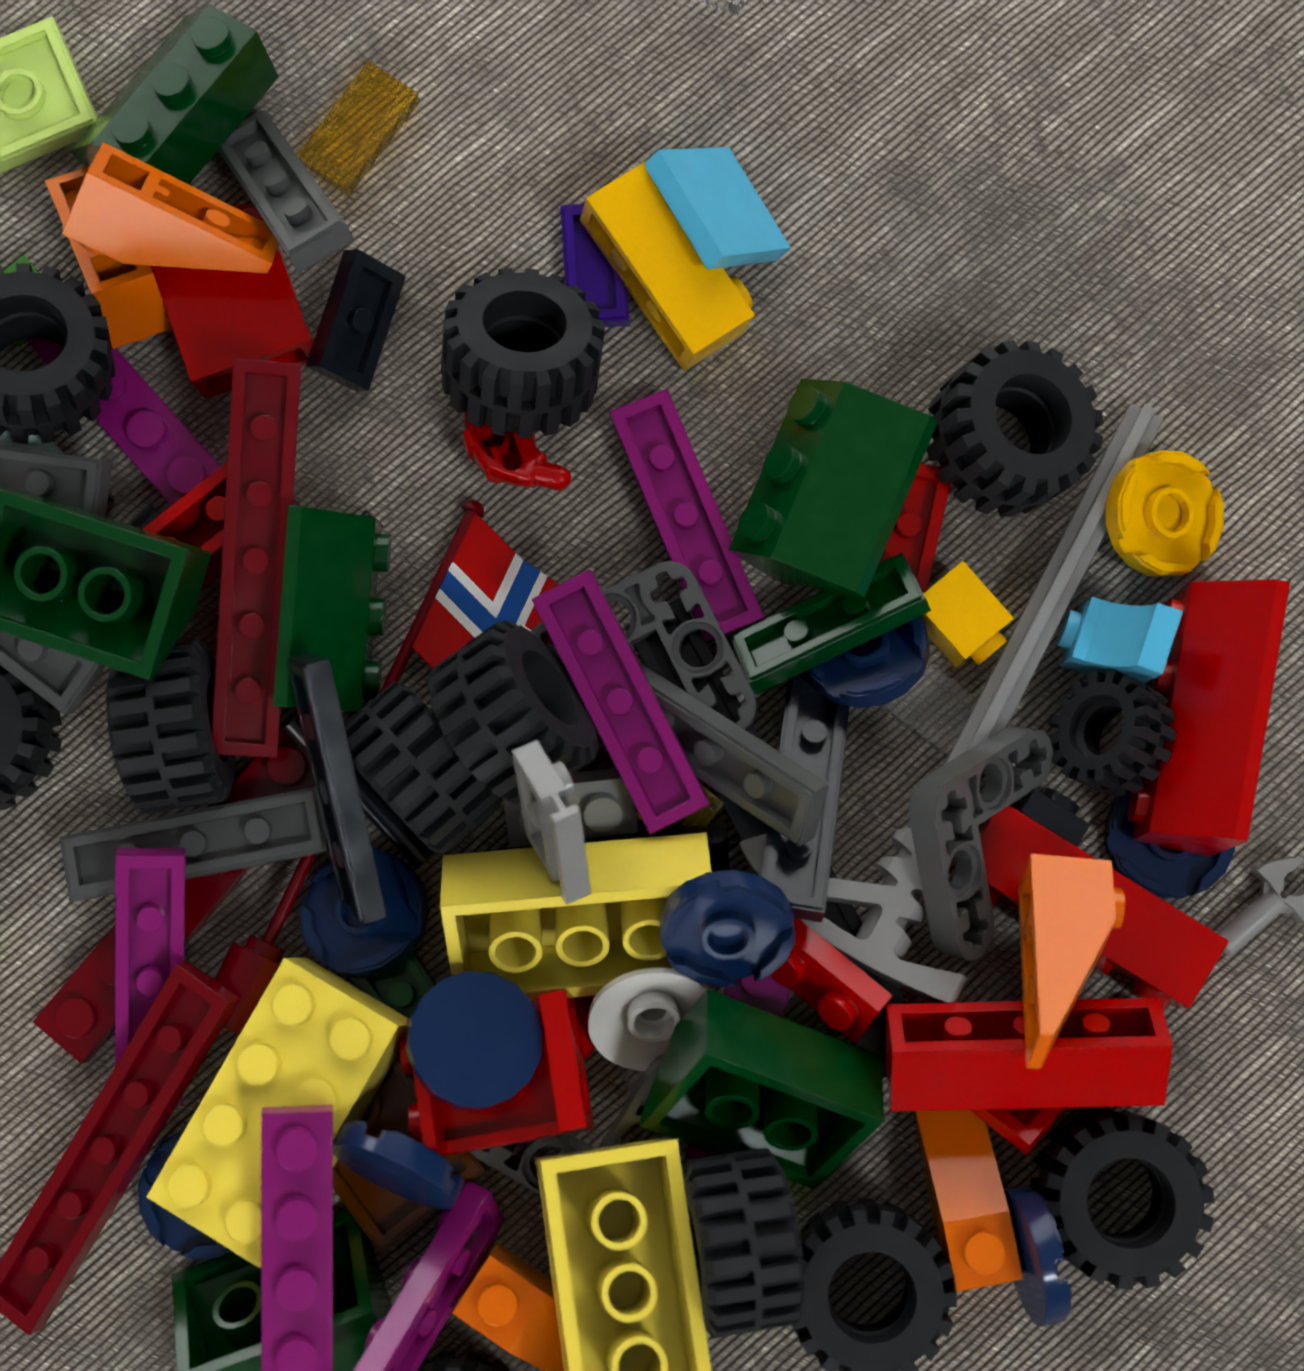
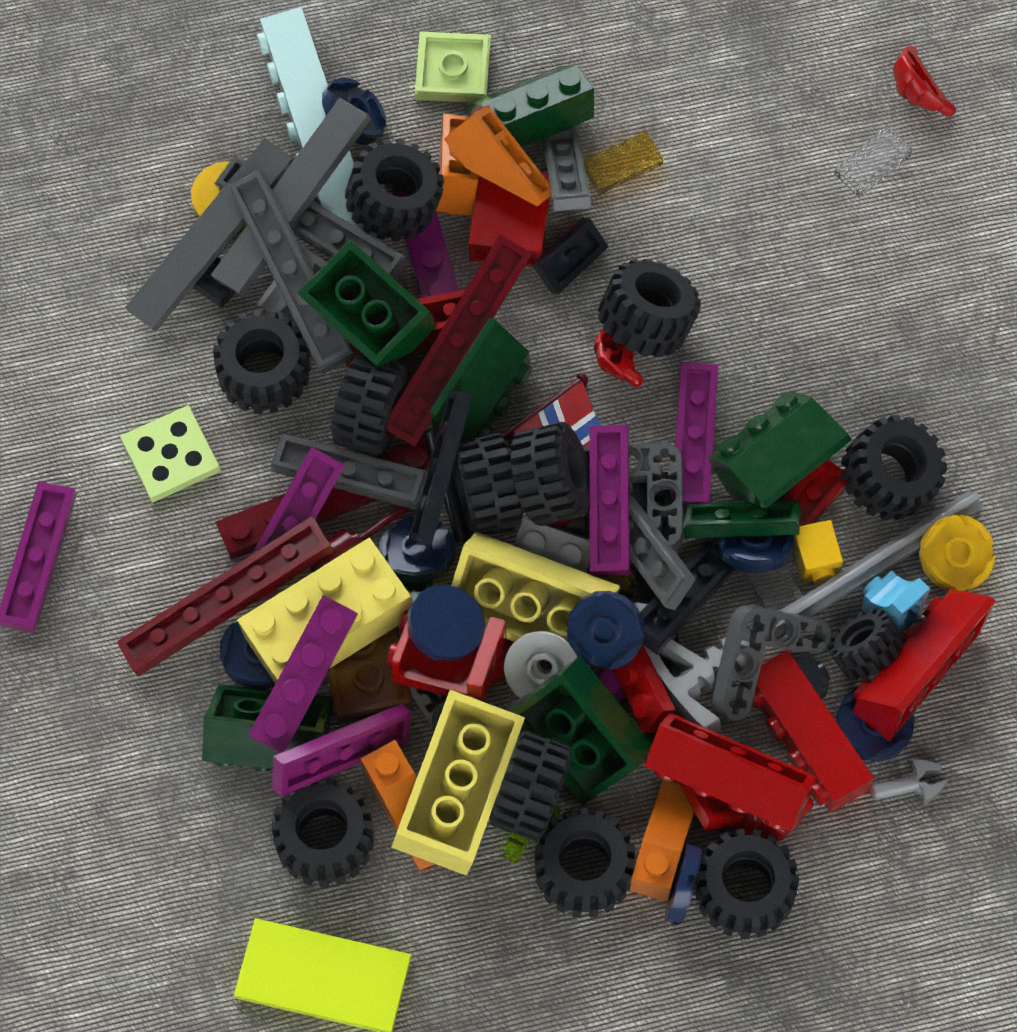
camera: 25 degrees right, 15 degrees down
(399, 1165) = (373, 666): dark blue tile -> none
(550, 822) = (543, 525): light grey plate -> none
(591, 270) = (716, 285): dark purple tile -> none
(645, 245) = (751, 303): yellow brick -> none
(717, 206) = (793, 285): medium azure tile -> none
(1064, 926) = (779, 719): orange slope -> none

